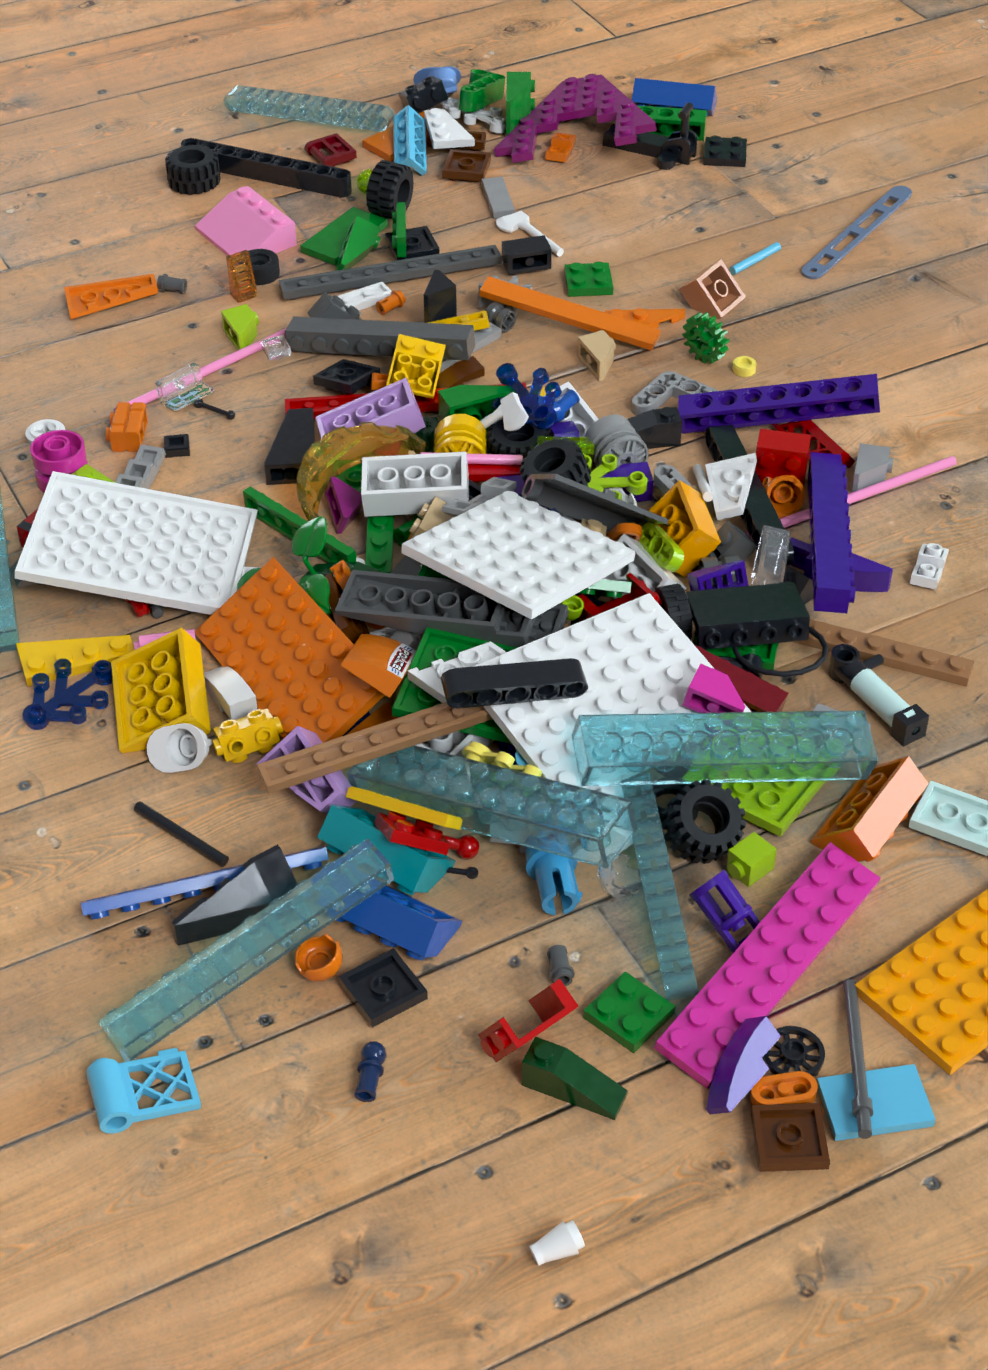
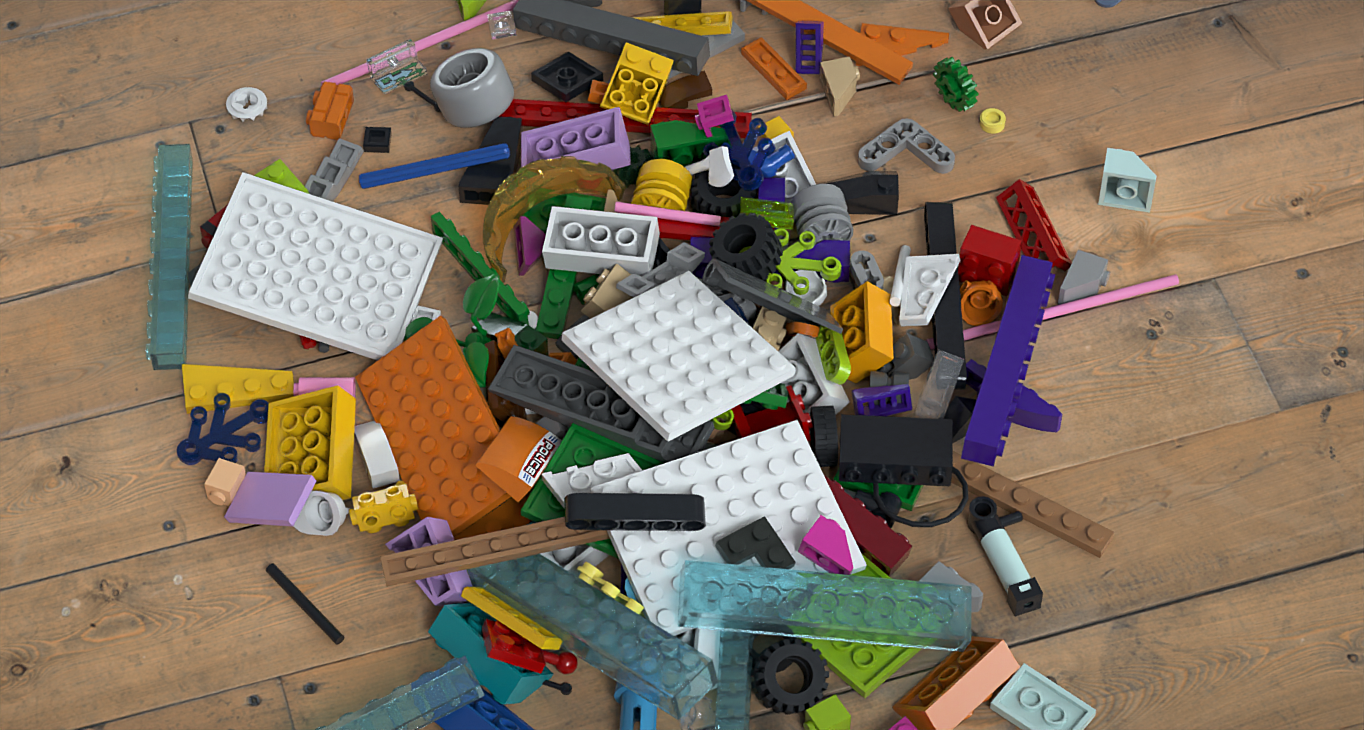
camera: 10 degrees right, 10 degrees up
(58, 452) = (252, 145): dark pink wheel -> none
(78, 736) = (224, 482): none -> light nougat brick
(128, 741) = (270, 498): none -> lavender tile
(189, 886) = (305, 662): plate -> none
(237, 453) = (434, 166): none -> blue axle
(251, 891) = (345, 691): black wedge -> none
(261, 388) = (472, 87): none -> light grey wheel
(496, 369) = (713, 113): none -> dark pink bracket
(500, 316) = (749, 20): dark grey wheel -> none
(534, 352) = (774, 68): none -> orange tile
(569, 308) = (818, 26): none -> dark purple slope
(639, 698) = (756, 540): none -> pearl dark grey plate
(780, 403) = (1016, 195): dark purple brick -> none
(894, 387) = (1126, 182): none -> light aqua slope
(929, 566) = (1107, 410): white slope -> none

